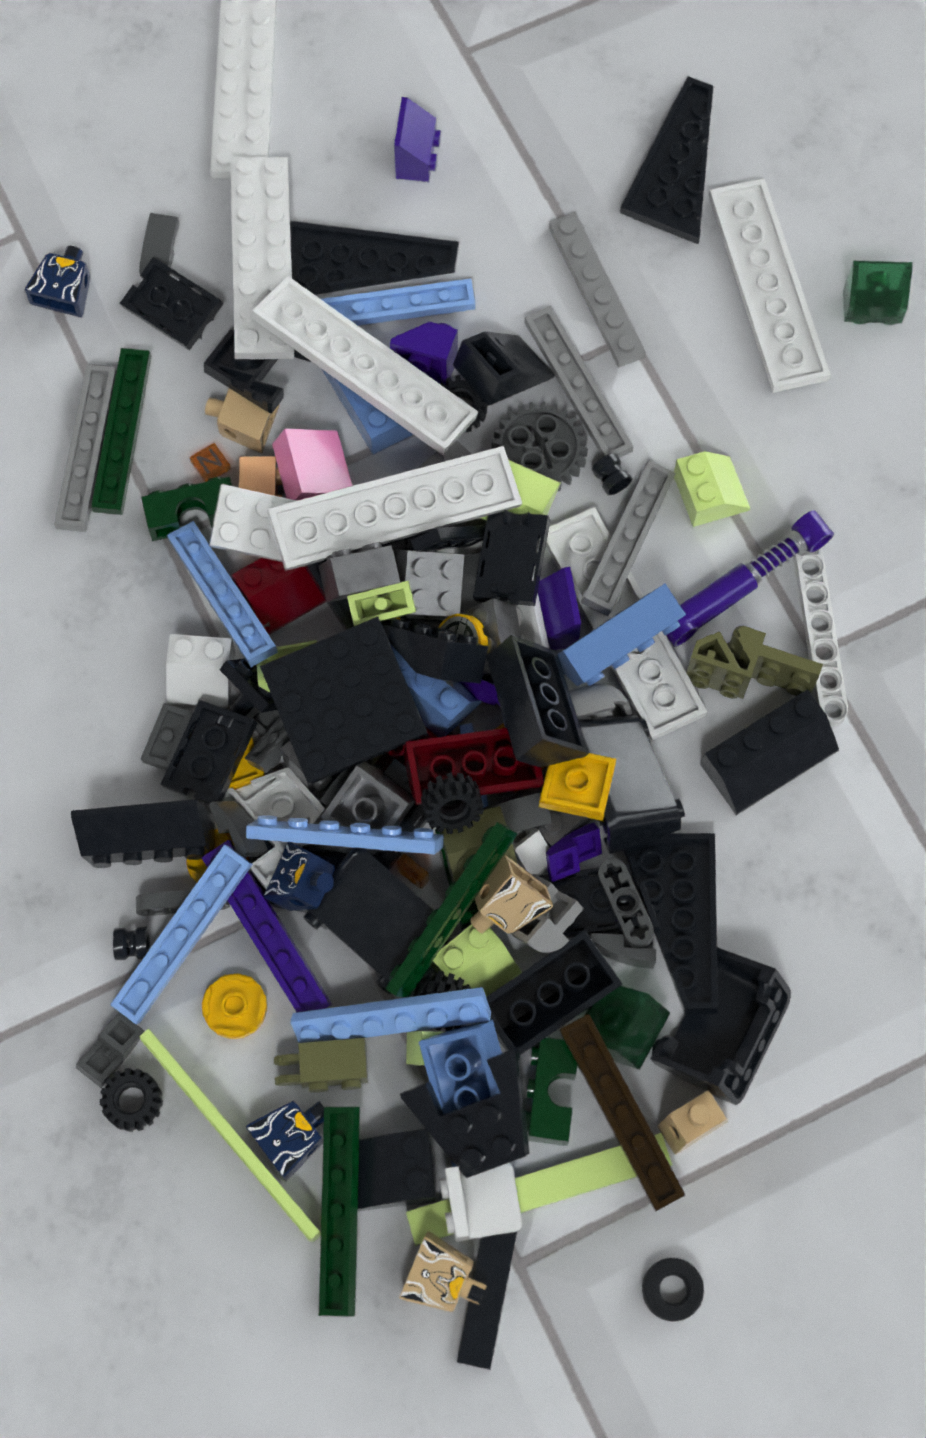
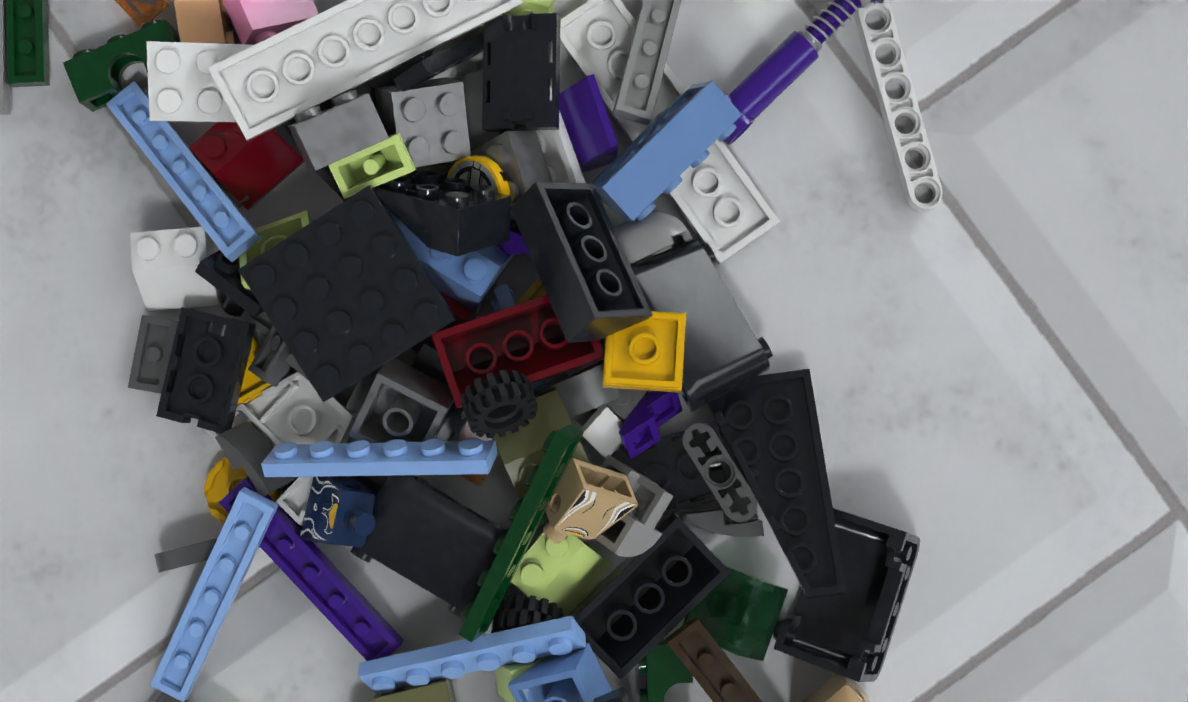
camera: 10 degrees left, 15 degrees up
(131, 943) = (159, 609): black wheel -> none
(144, 832) = (146, 483): black slope -> none
(234, 1006) = (293, 658): yellow tile -> none
(733, 664) = (814, 152): olive piece -> none
(770, 752) = (860, 258): black slope -> none

